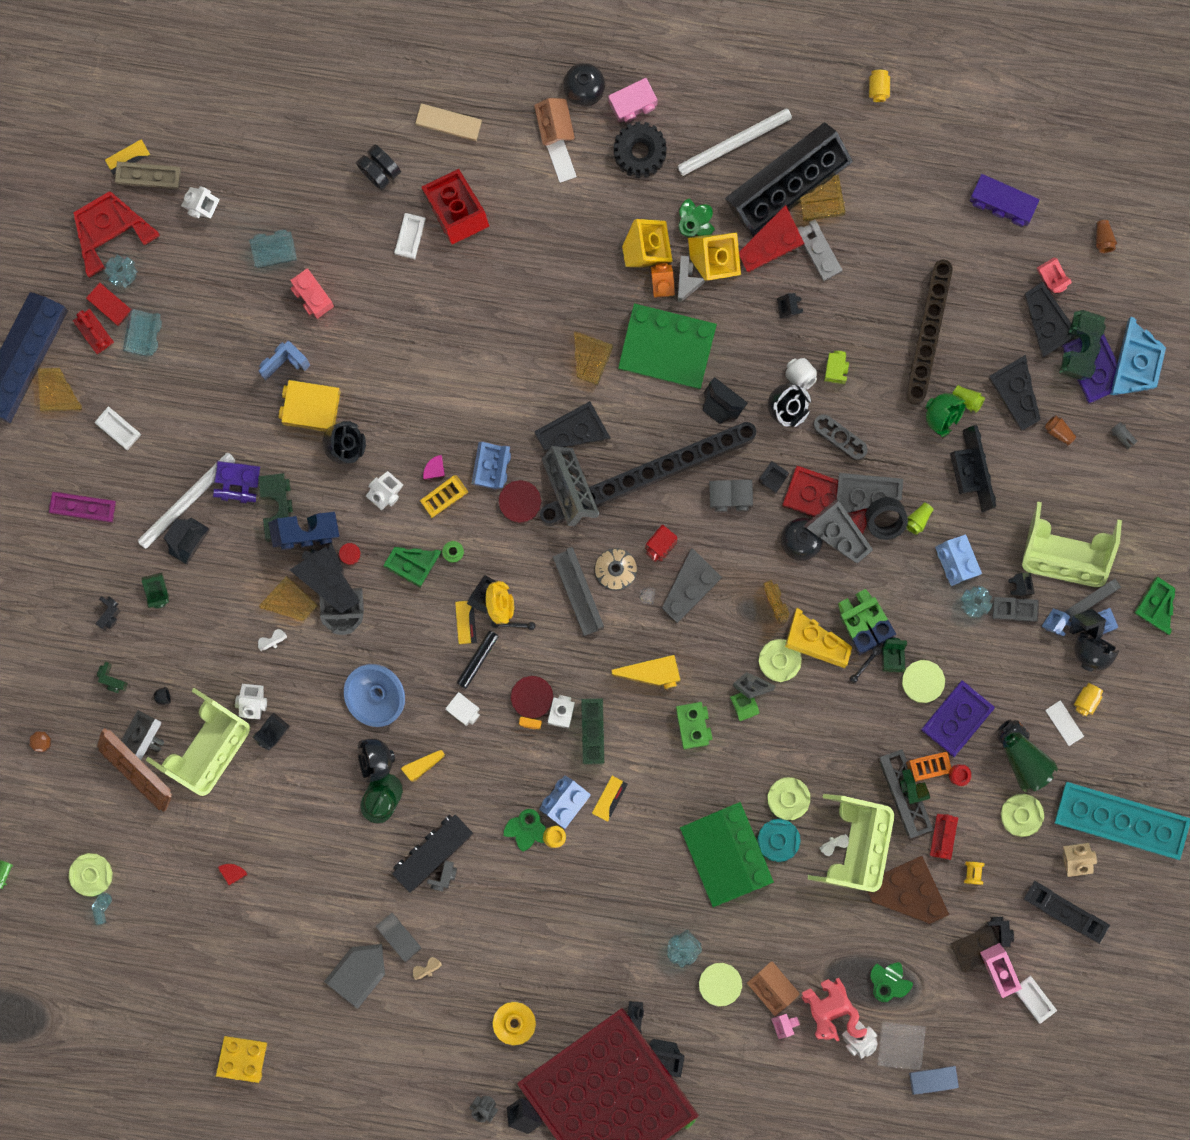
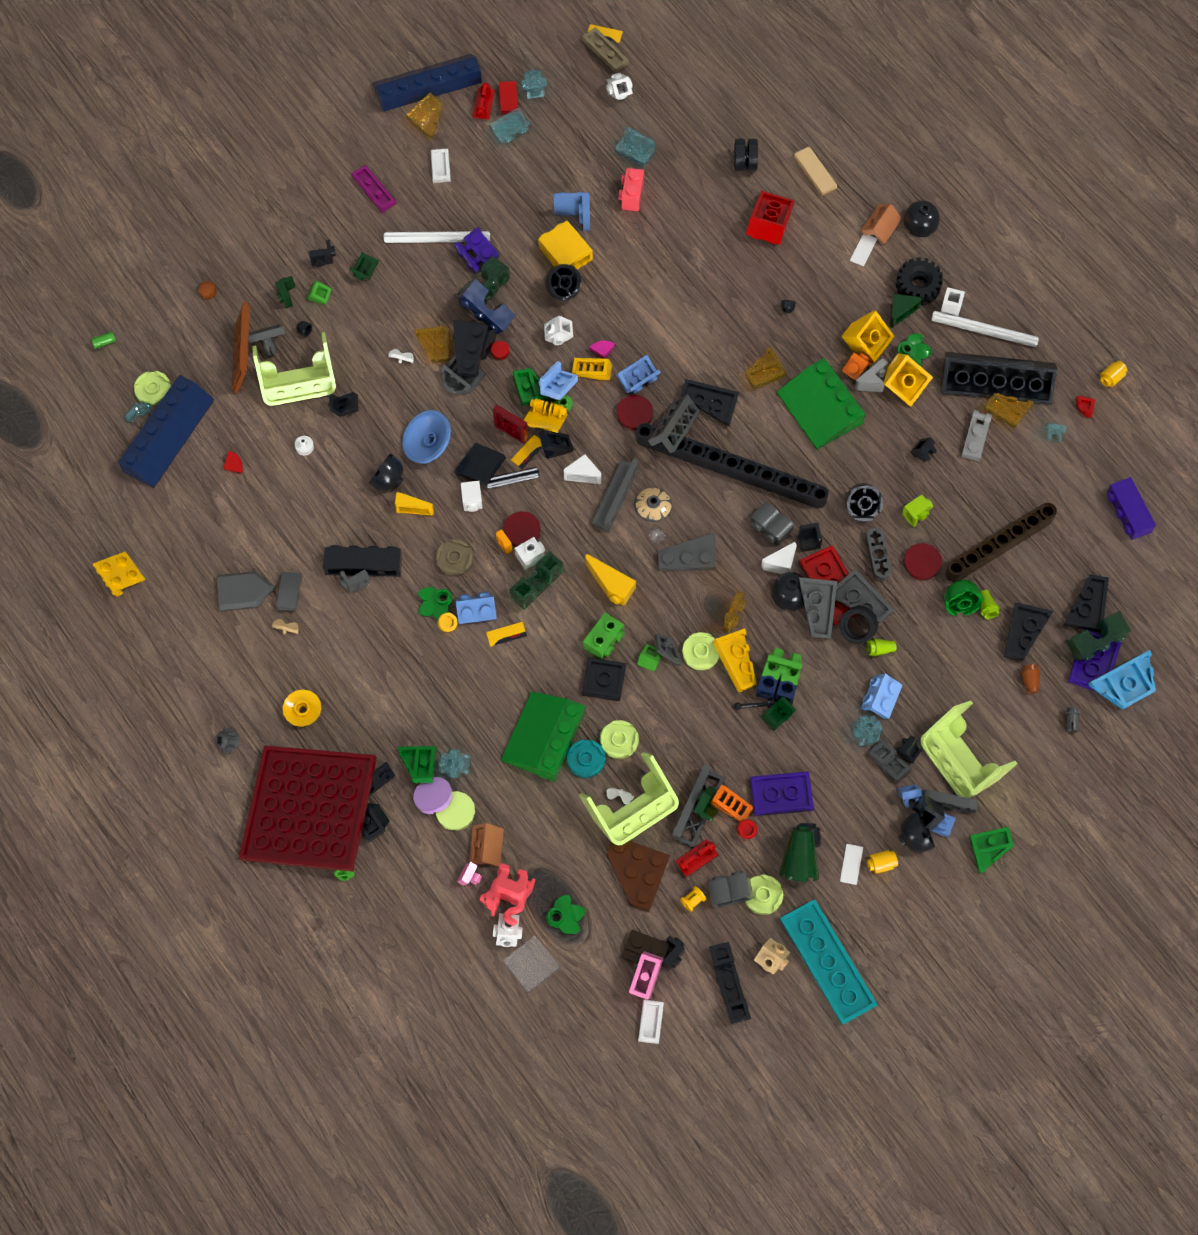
camera: 45 degrees right, 15 degrees down
(103, 221) = (553, 52): red wing -> none
(139, 651) = (318, 293): none -> bright green slope
(148, 902) = (166, 431): none -> dark blue slope
(185, 538) = (413, 256): black slope -> none
(251, 701) = (350, 375): white brick -> none
(280, 800) = (304, 445): none -> white tile
(381, 799) = (367, 503): dark green piece -> none
(410, 236) = (725, 211): white tile -> none
(432, 539) = (556, 382): none -> light blue bracket
(433, 616) = (510, 424): none -> dark red tile
(441, 674) = (480, 464): none -> black tile
(453, 581) = (545, 418): none -> yellow hinge
(499, 602) = (559, 453): yellow tile -> none
(501, 775) = (454, 557): none -> dark tan tile
(523, 1116) = (246, 770): black panel -> none
(531, 625) = (545, 468): black hinge -> none
(532, 596) = (582, 471): none -> white slope
(551, 277) = (788, 306): none -> black hinge
(633, 101) = (943, 251): bright pink brick -> none
(648, 189) = (903, 307): none -> dark green slope
(654, 975) = (419, 762): none -> green wing
(660, 544) = (696, 509): red brick -> none
(688, 145) = (952, 301): none -> white brick
(692, 990) = (433, 796): none -> lavender tile
(722, 402) = (822, 466): black slope -> none
(727, 760) = (604, 679): none -> black tile
(771, 519) = (780, 561): none -> white slope
(772, 241) = (953, 403): red wing -> none
(801, 373) = (892, 493): white head -> none
(878, 183) = (1055, 429): none -> clear light blue tile
(881, 409) = (922, 561): none -> dark red tile
(882, 136) = (1085, 405): none -> red tile
(923, 681) = (782, 749): yellowish green tile -> none
(933, 1080) = (529, 1005): sand blue slope -> none
(972, 470) = (945, 649): black bracket -> none
(997, 838) = (730, 889): none -> dark grey brick
(1054, 276) = (1120, 581): coral bracket -> none
(1104, 237) = (1178, 590): dark orange cone -> none

